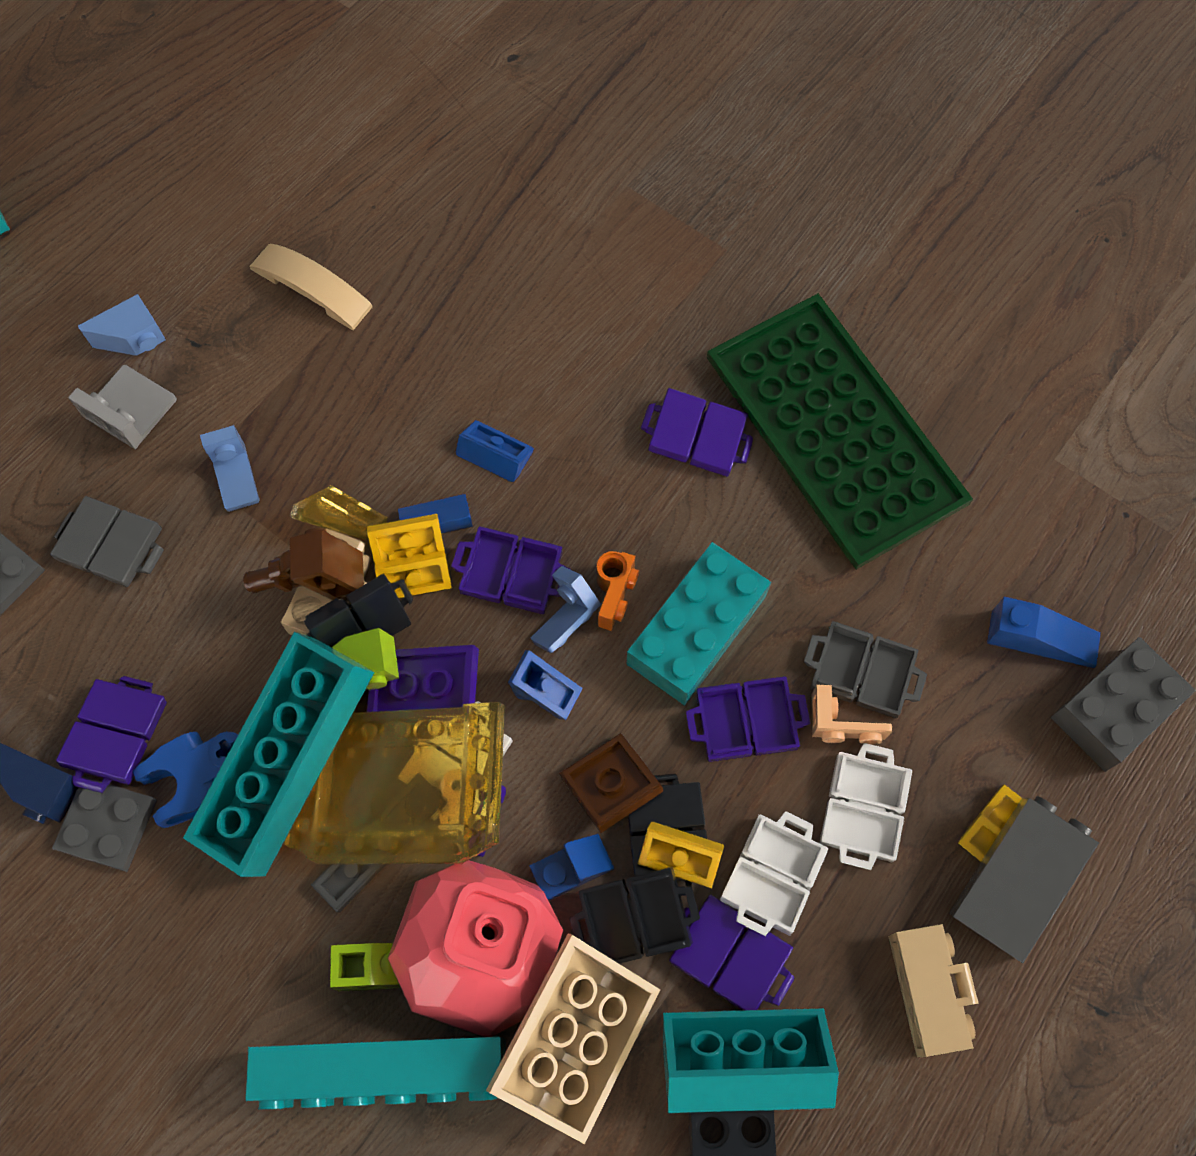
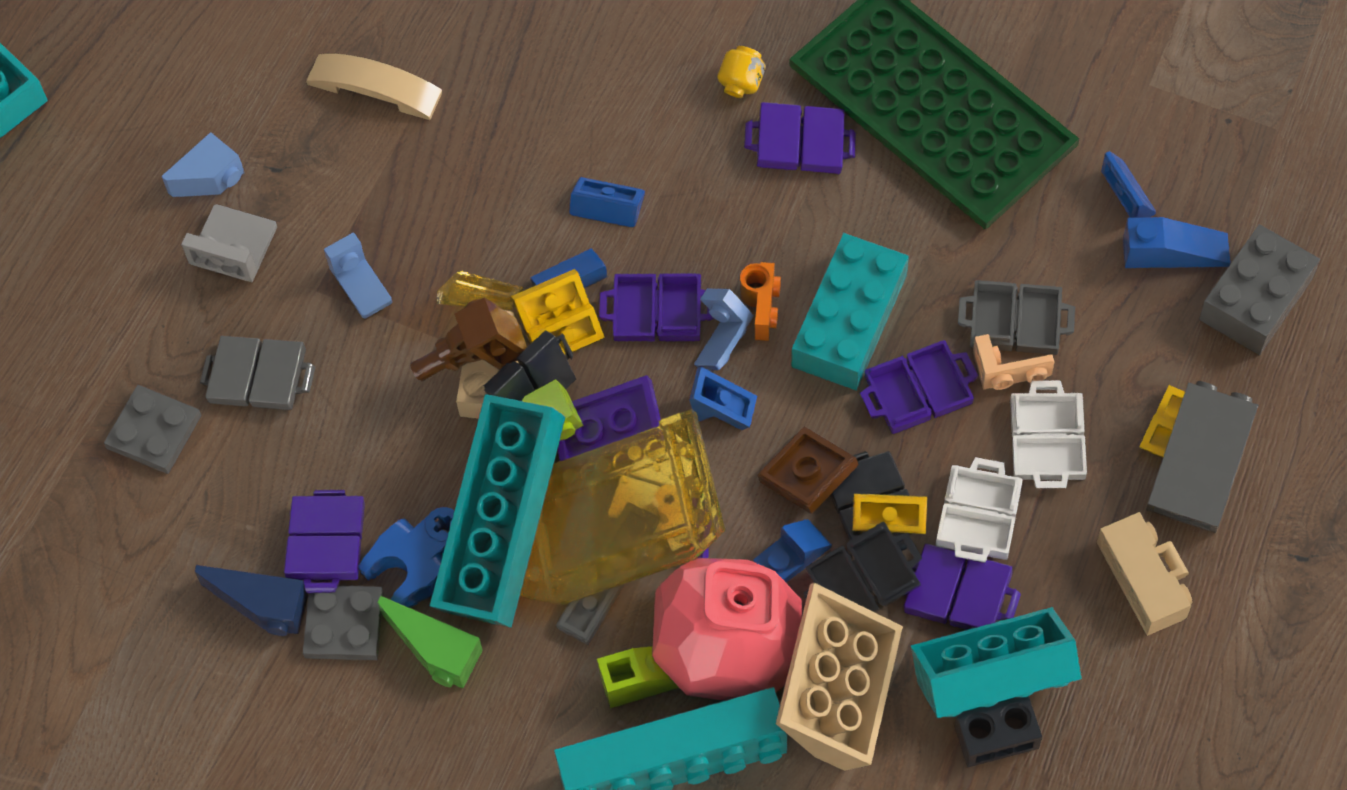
camera: 10 degrees left, 5 degrees down
(181, 877) = (440, 648): none -> bright green slope
(658, 352) = (741, 71): none -> yellow head
(1008, 561) = (1126, 187): none -> blue slope

